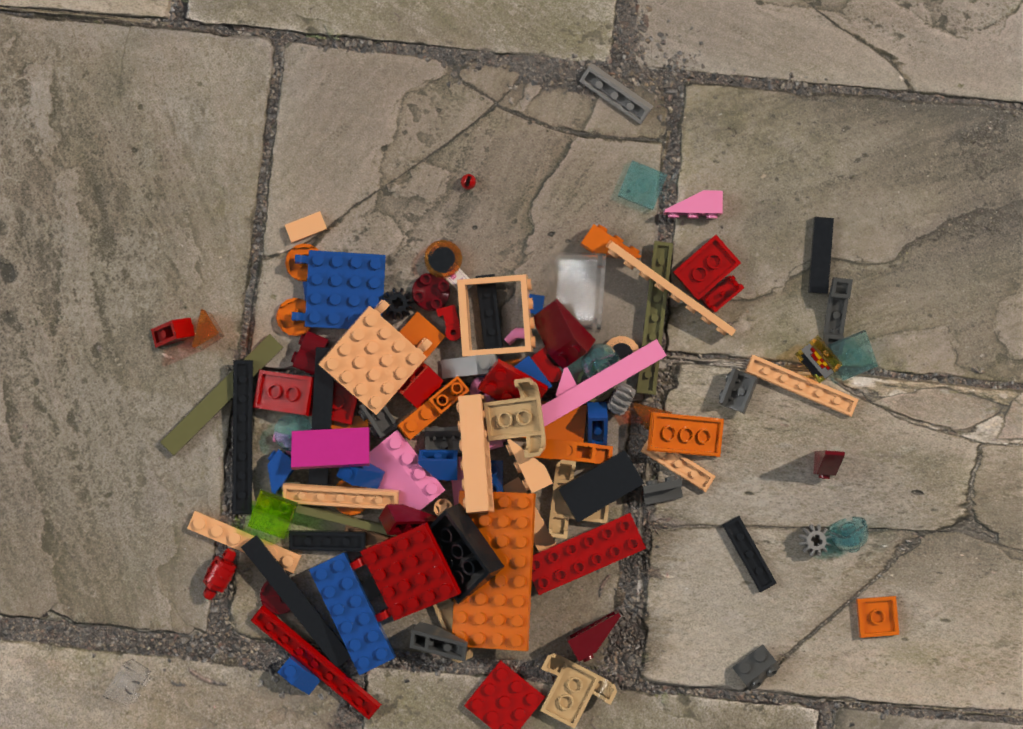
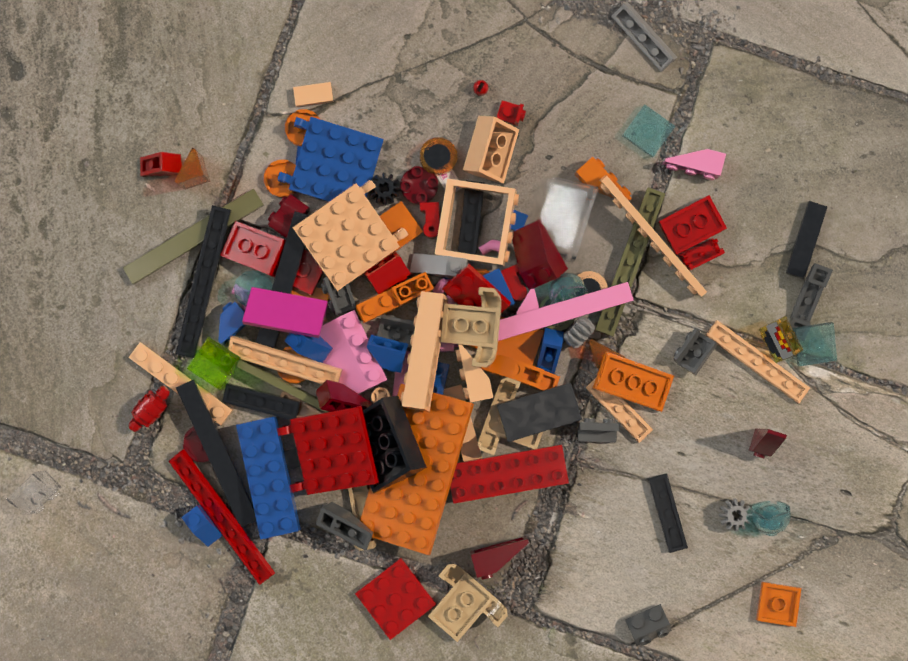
camera: 15 degrees right, 0 degrees up
(492, 239) = (491, 149): none -> light nougat slope
(504, 199) = (511, 112): none -> red bracket

